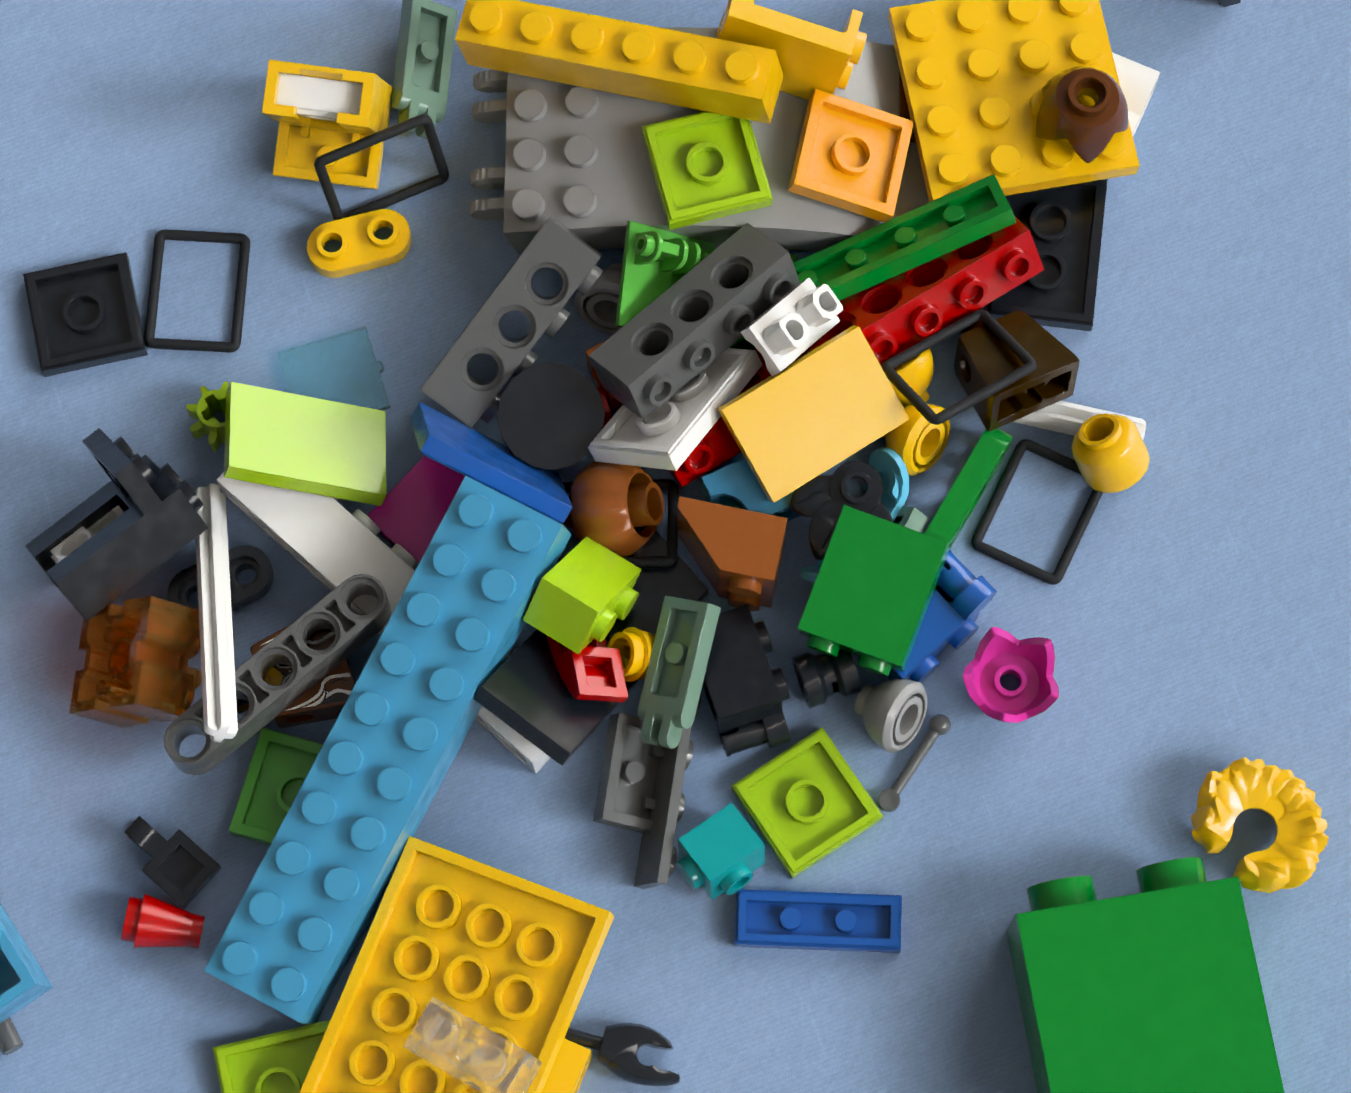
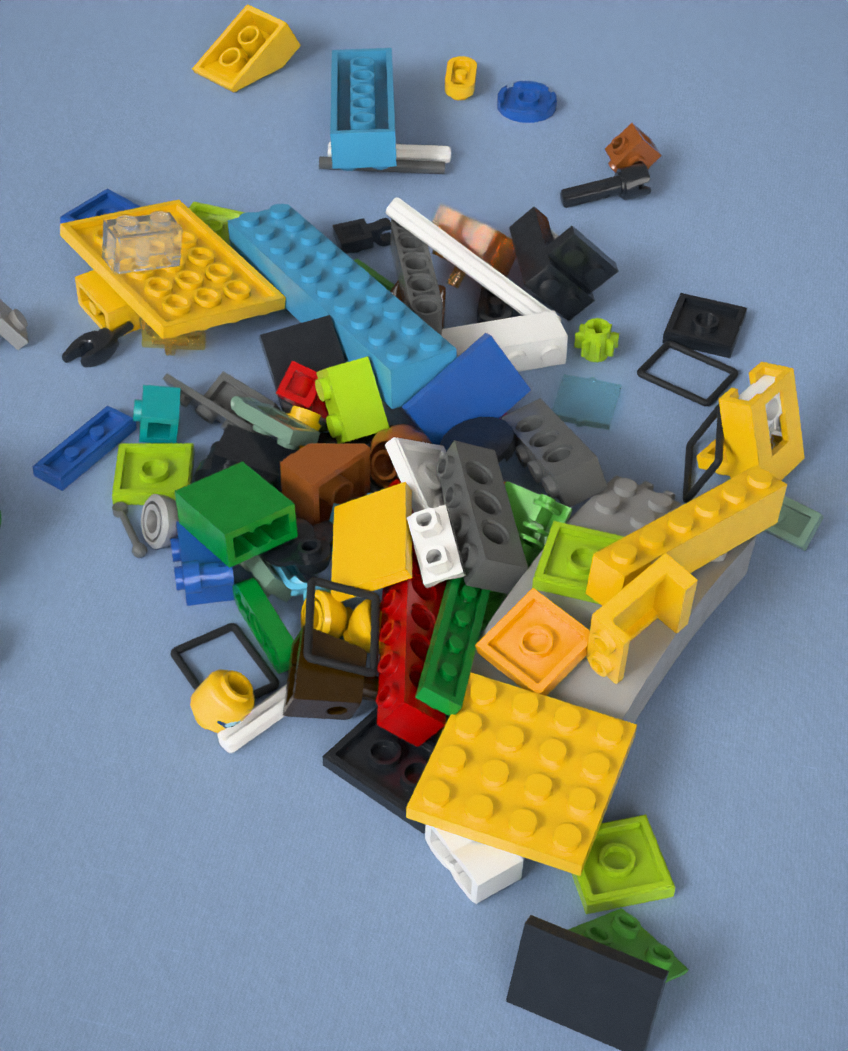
camera: 120 degrees right, 30 degrees down
(160, 924) = (334, 212): red cone -> none
(305, 444) = (551, 343): tile -> none
(359, 247) = (667, 444): yellow plate -> none
(1028, 660) = (128, 582): dark pink piece -> none
(1084, 127) = (476, 780): reddish brown piece -> none

